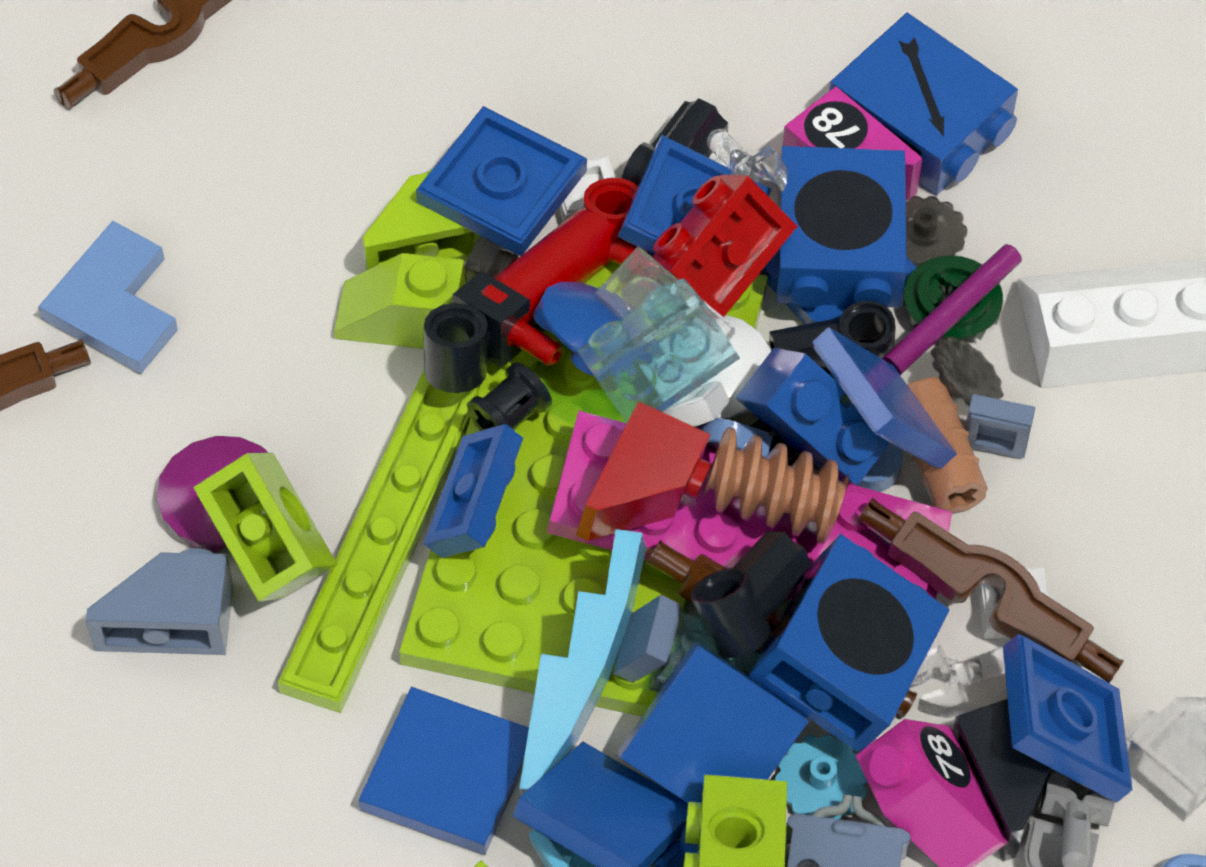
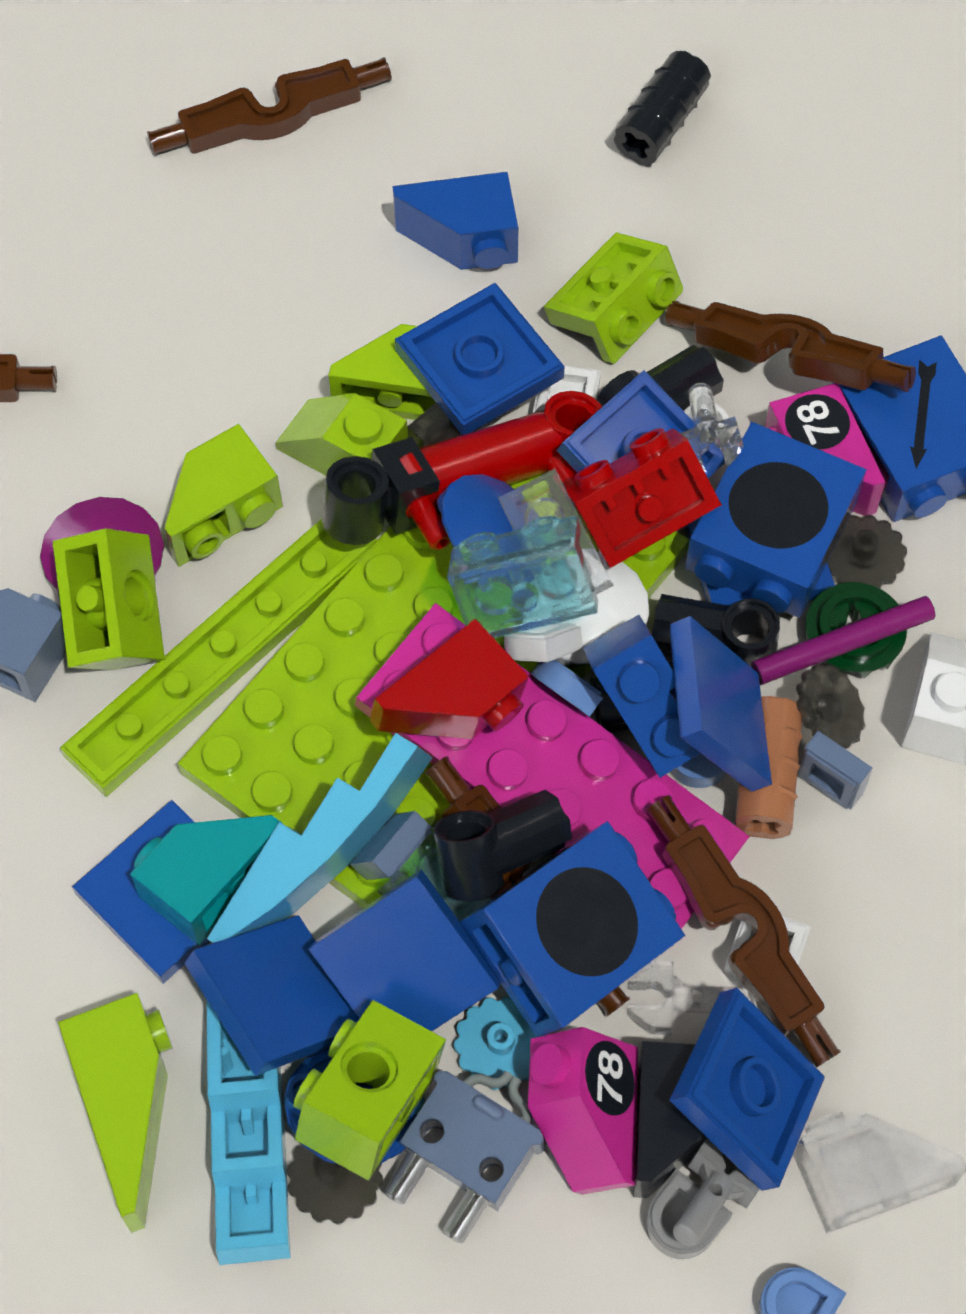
camera: 25 degrees right, 5 degrees up
(100, 301) = (88, 336): medium blue tile -> none
(313, 391) = (218, 494): none -> lime slope
(408, 64) = (461, 219): none -> blue slope
(474, 491) = (306, 641): blue plate -> none
(481, 731) = (199, 869): none -> teal slope
(510, 400) = (381, 571): black bush -> none
(588, 80) = (617, 294): none -> lime bracket
(776, 485) = (574, 750): nougat piece -> none
(803, 68) = (814, 349): none -> reddish brown piece

